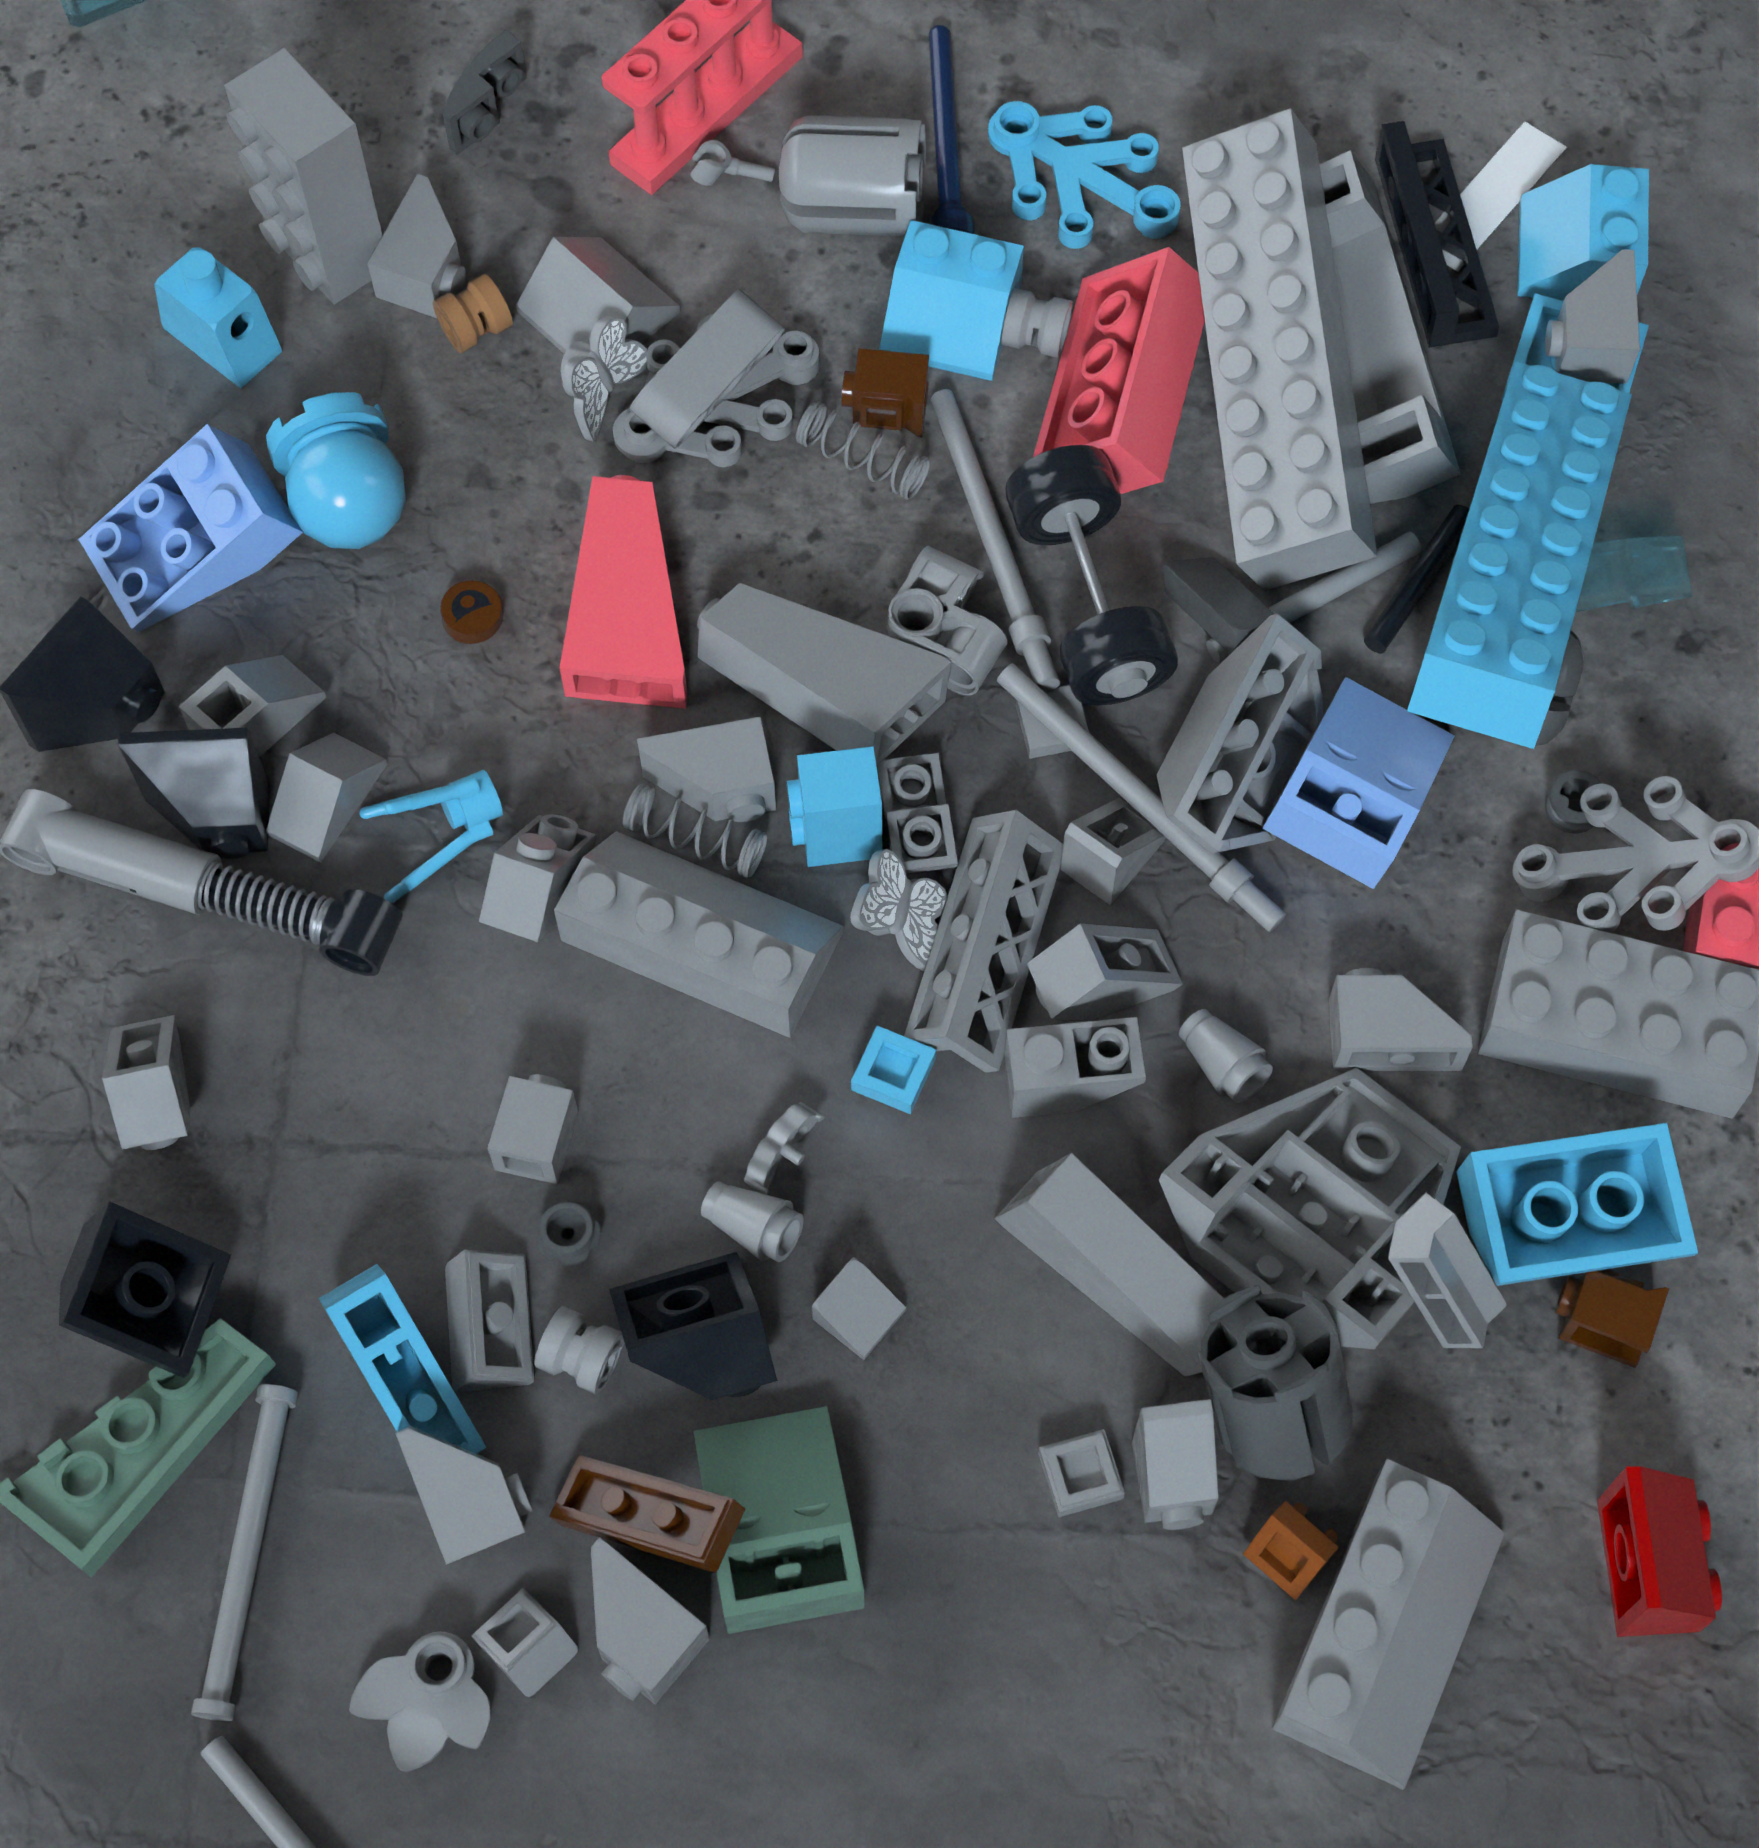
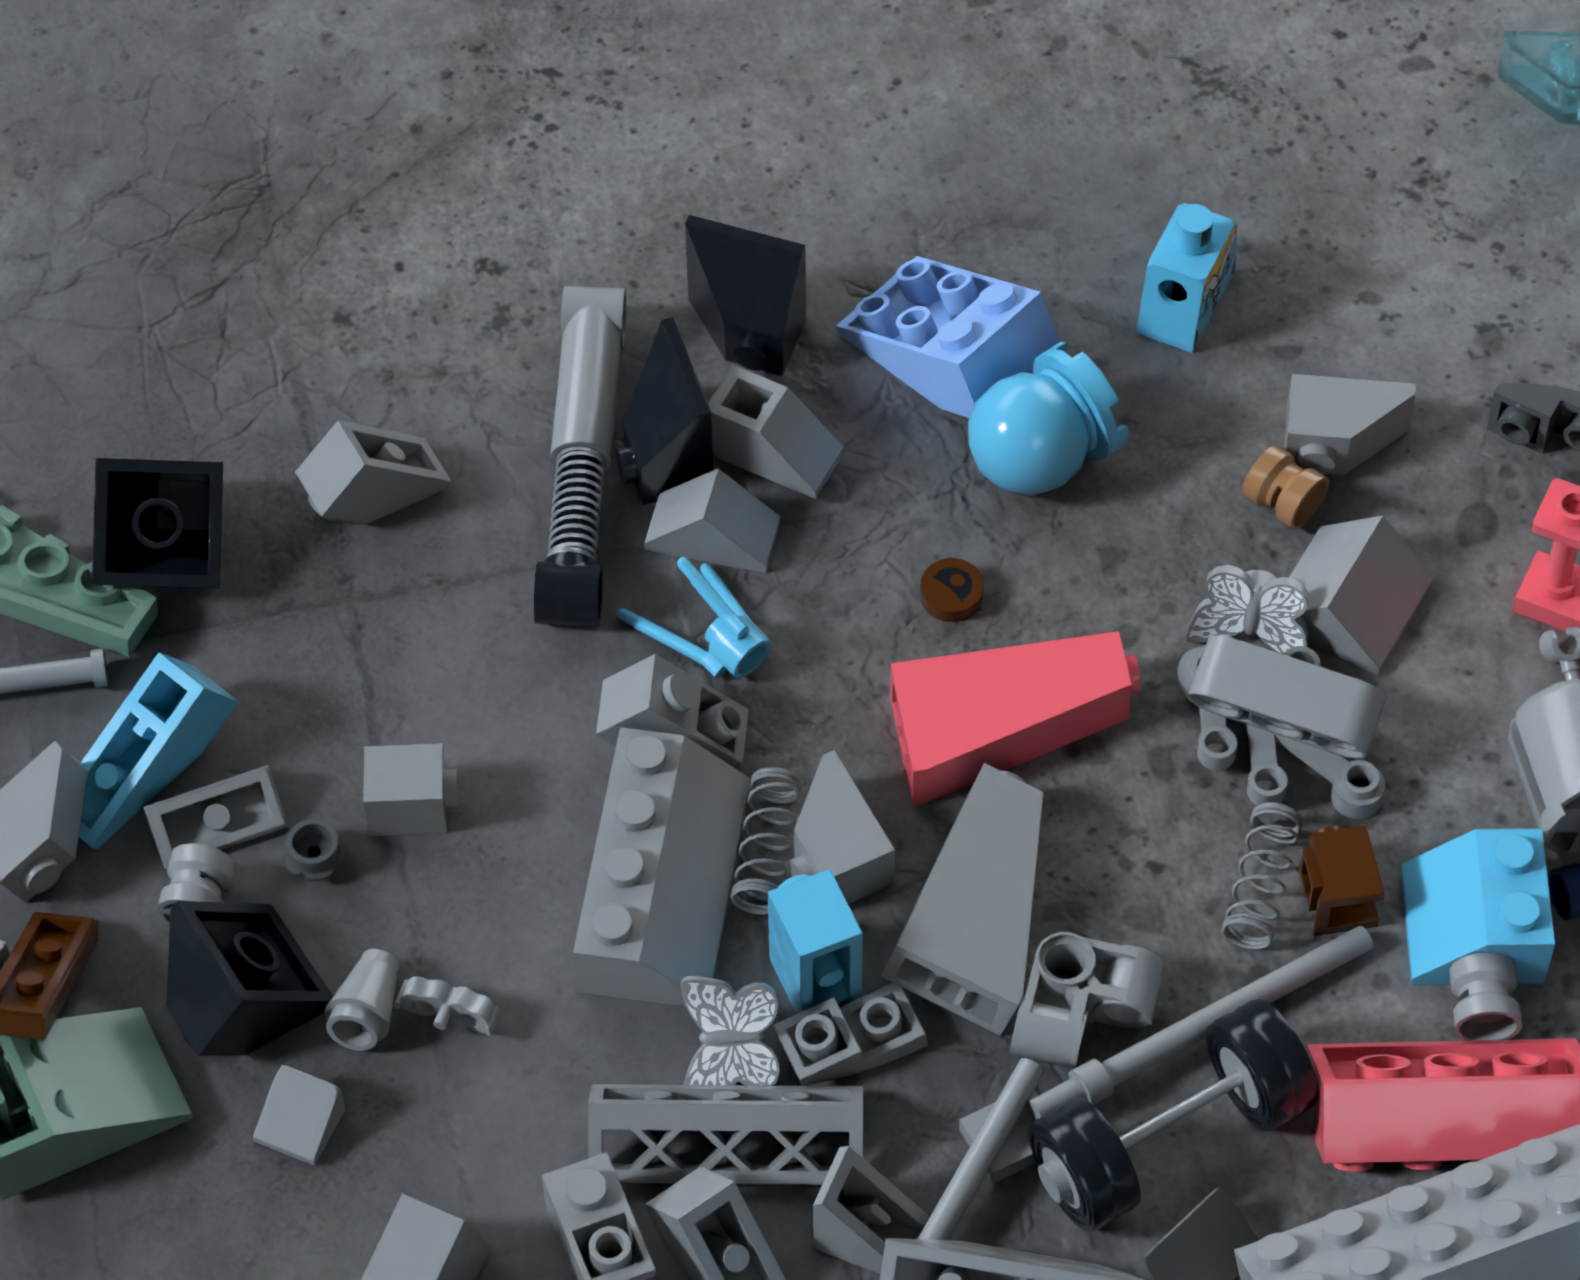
camera: 75 degrees right, 10 degrees down
(305, 174) = (1336, 269): light grey brick -> none
(893, 1069) = (557, 1082): medium azure plate -> none

